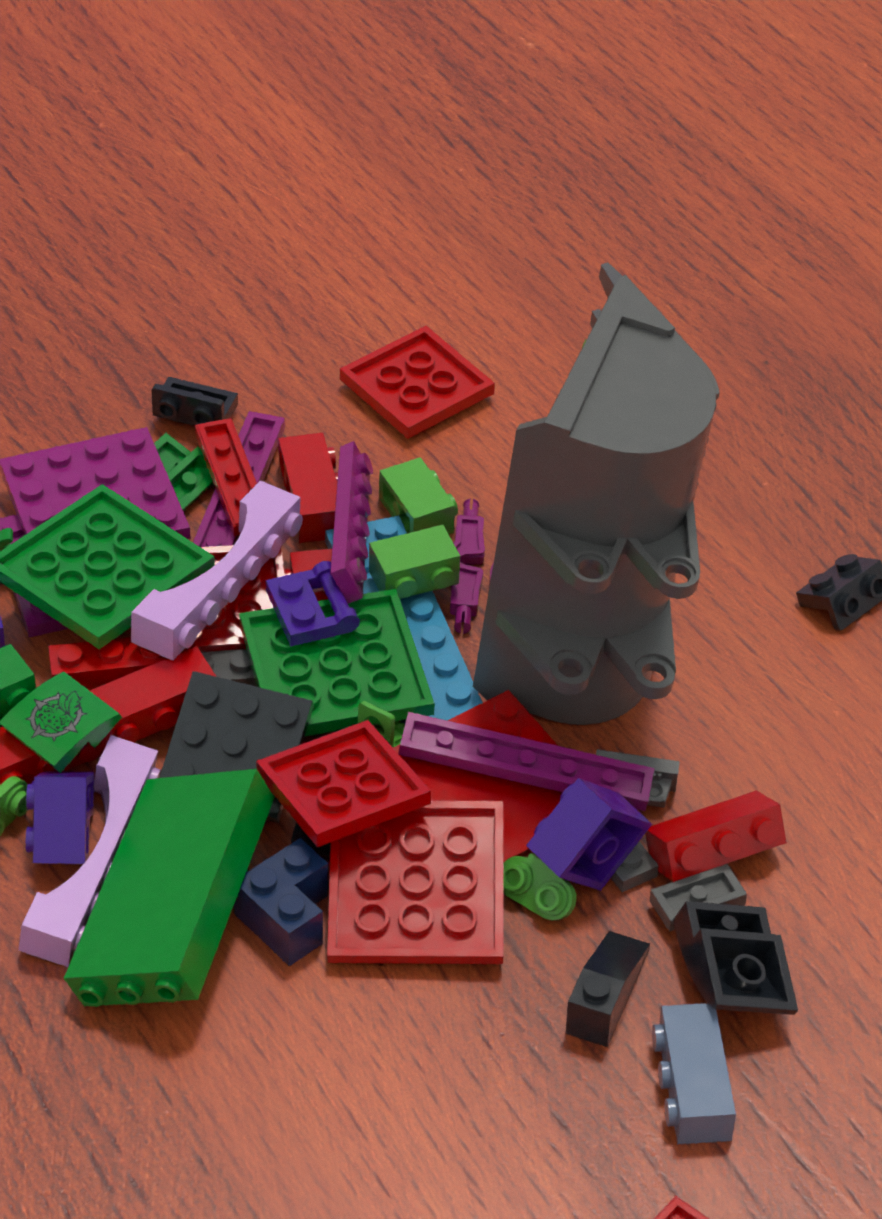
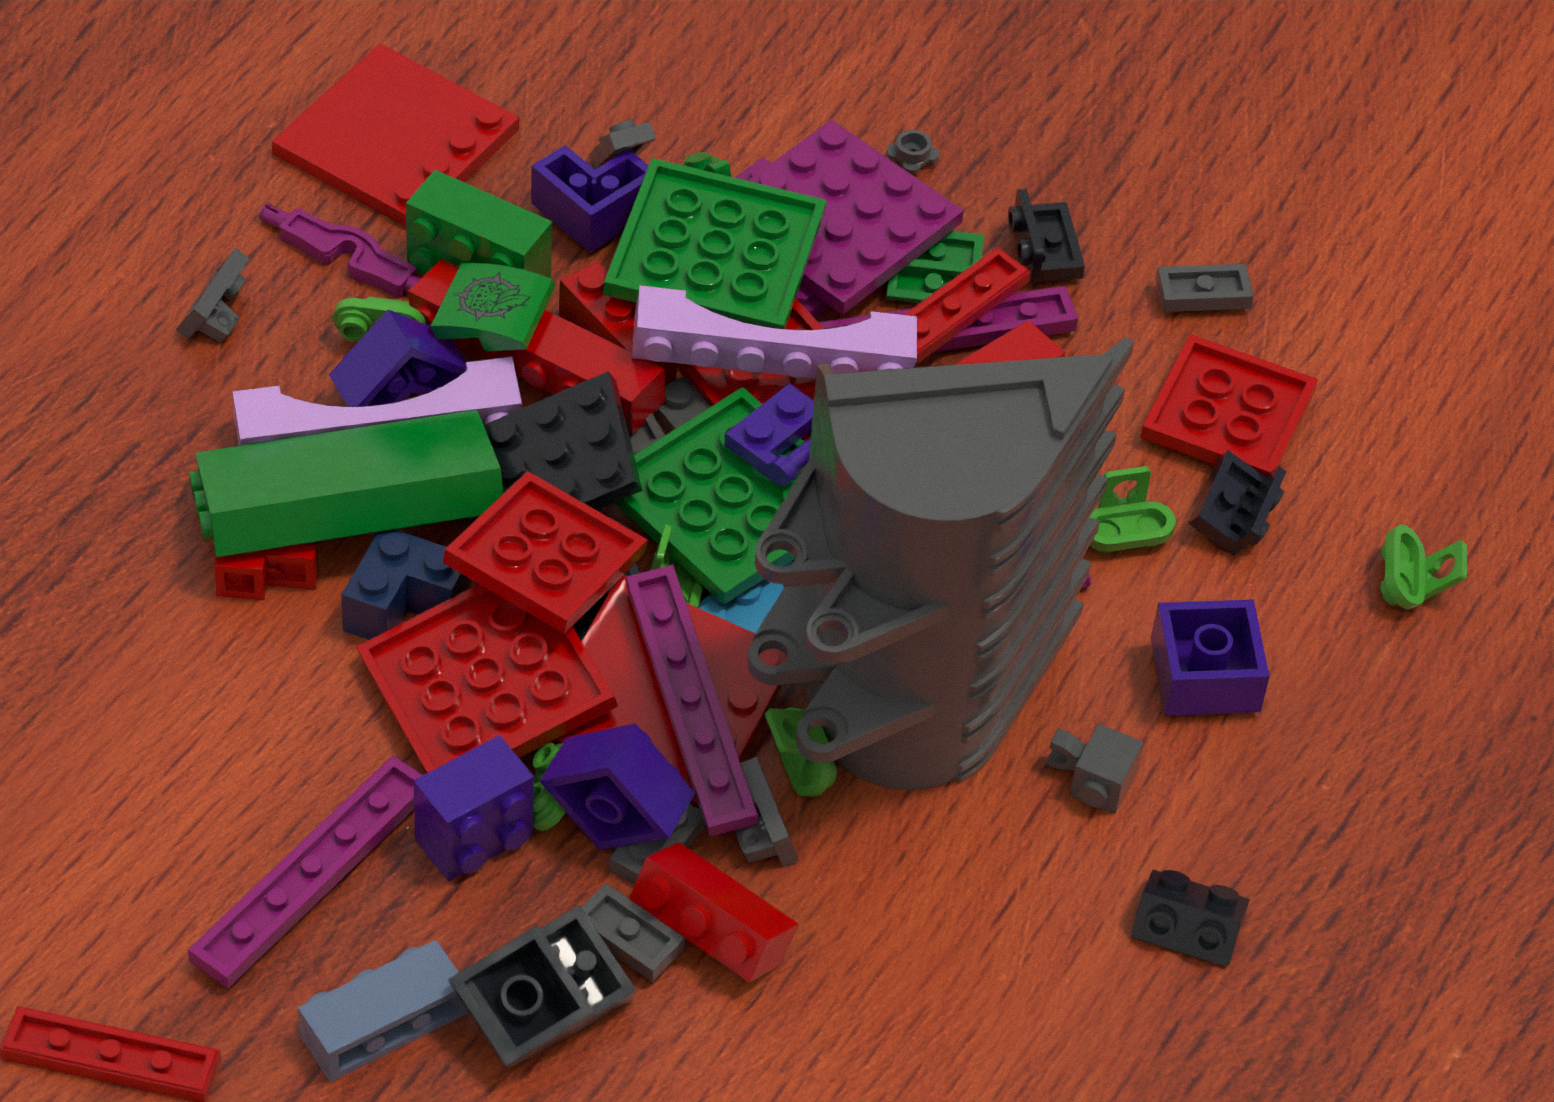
camera: 60 degrees right, 5 degrees up
(46, 435) = (913, 150): none -> dark grey plate
(212, 994) = (251, 572): none -> red slope
(297, 346) = (1204, 287): none -> dark grey plate
(485, 473) = (1130, 520): none -> bright green bracket
(505, 407) = (1237, 503): none -> black bracket
(533, 1072) = (306, 874): none -> magenta plate
(549, 933) = (473, 808): none -> dark purple brick
(590, 728) = (806, 776): none -> bright green bracket
(605, 988) = (460, 891): black slope -> none
(712, 584) = (1100, 767): none -> dark grey brick

